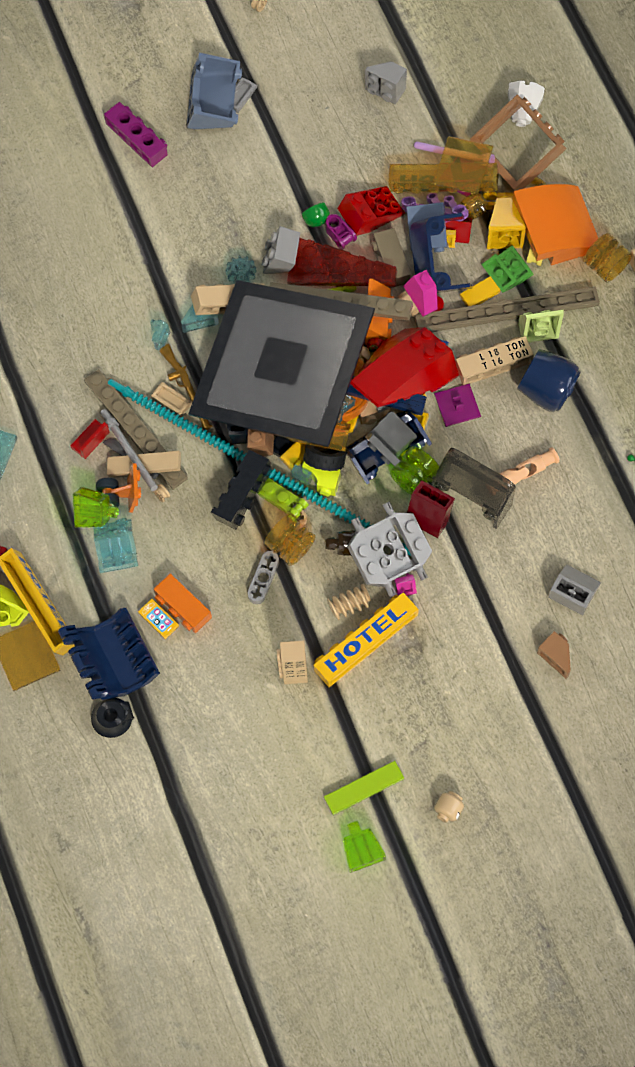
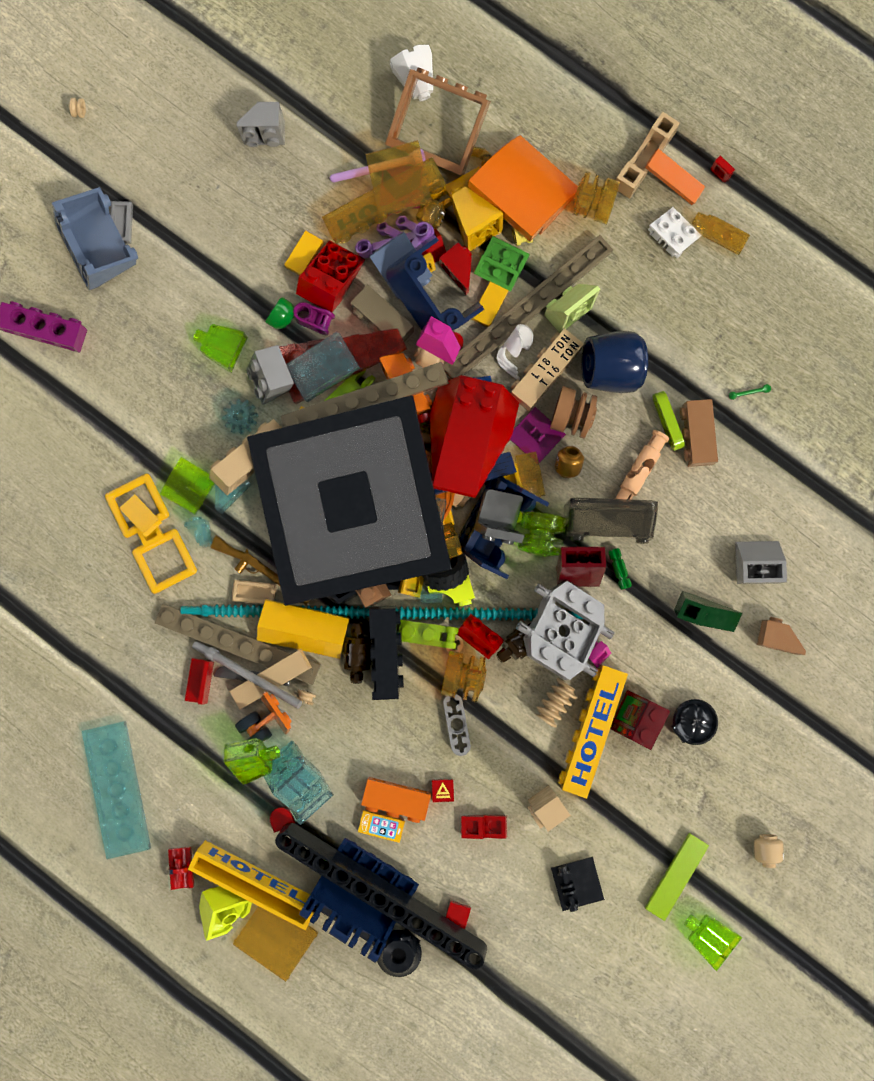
camera: 30 degrees left, 15 degrees up
(86, 571) = (280, 817): none -> red tile
(122, 317) = (155, 538): none -> yellow bar
(123, 298) = (140, 515): none -> yellow tile
(134, 667) = (386, 904): none -> black beam
(170, 298) = (187, 486): none -> clear neon green plate
(174, 717) = (458, 913): none -> red tile
(196, 446) = (302, 628): none -> yellow slope
(218, 480) = (357, 653): none -> dark brown piece
(221, 619) = (442, 790): none -> red tile
(236, 664) = (484, 826): none -> red slope
(259, 215) = (221, 345): none -> clear neon green torso
(282, 747) = (577, 884): none -> black hinge
(321, 520) = (480, 636): none -> red bracket
(323, 265) = (322, 366): none -> clear light blue plate
(363, 182) = (303, 253): none -> yellow tile
(407, 653) = (639, 719): none -> dark red slope
(435, 426) = (530, 473): none -> clear yellow slope
(450, 677) = (695, 722): none -> black piece
(462, 534) = (619, 568): none -> green axle
(469, 434) = (569, 462): none -> pearl gold head
(472, 252) = (457, 265): none -> red slope
(490, 329) = (520, 338): none -> white helmet
(494, 398) = (574, 412): none -> medium nougat wheel
(510, 602) = (706, 613): none -> dark green slope
(567, 447) = (668, 420): none -> lime beam
(585, 469) = (699, 433): none -> medium nougat brick

